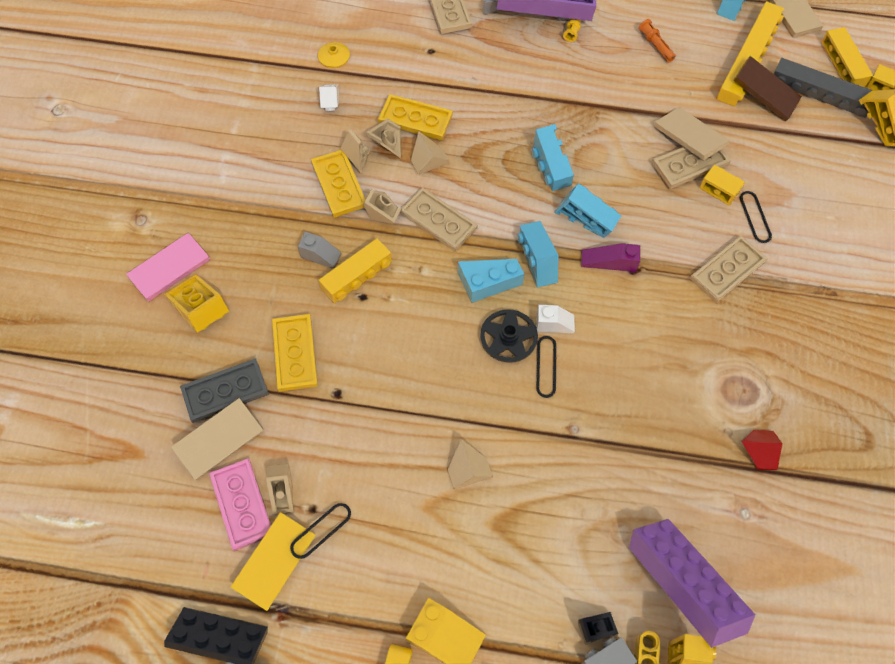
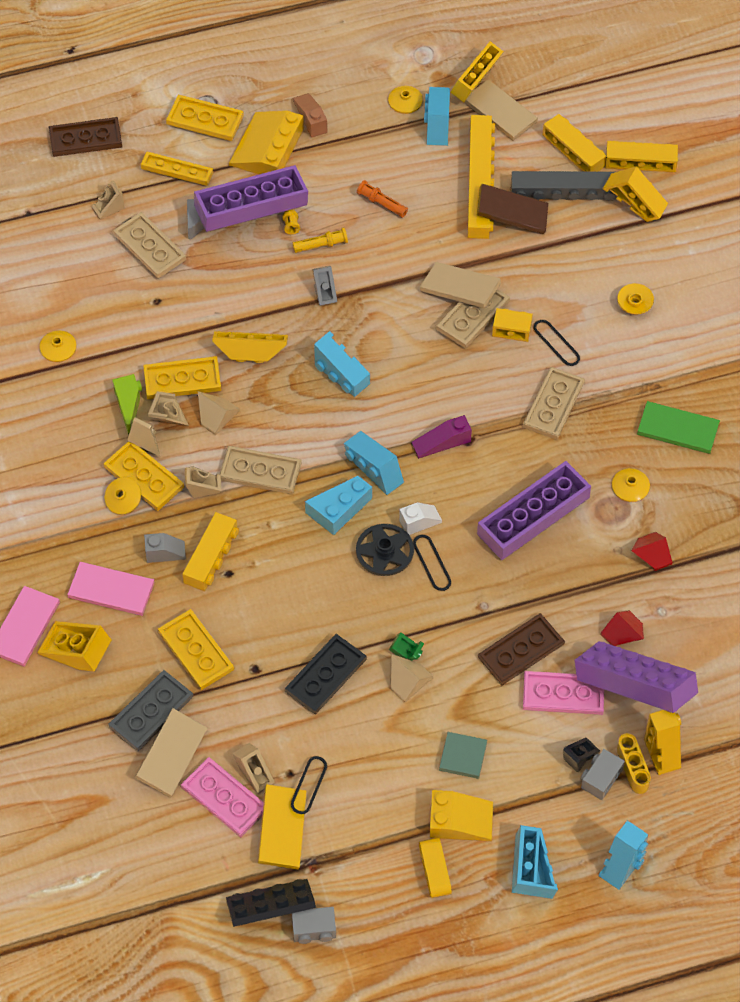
camera: 25 degrees left, 5 degrees down
(257, 266) = (111, 588): none -> bright pink tile
(311, 192) = (128, 501): none -> yellow dish
(329, 96) = (83, 391): white slope -> none
(362, 114) = (128, 397): none -> lime slope
(394, 428) = (325, 674): none -> black plate
(480, 437) = (406, 648): none -> green bracket
(481, 571) = (463, 755): none -> sand green tile
(482, 112) = (249, 346): none -> yellow wedge
(573, 89) = (324, 285): none -> light grey slope
(588, 210) = (400, 401): medium azure wedge -> none
(589, 488) = (521, 649): none -> reddish brown tile
(596, 55) = (328, 238): none -> yellow pin
(606, 553) = (561, 694): none -> bright pink tile
(664, 359) = (533, 510): none -> medium lavender brick
(699, 516) = (623, 629): none -> red slope
(763, 379) = (630, 491): none -> yellow dish
(839, 340) = (678, 427): none -> bright green tile
(847, 206) = (635, 293): none -> yellow dish

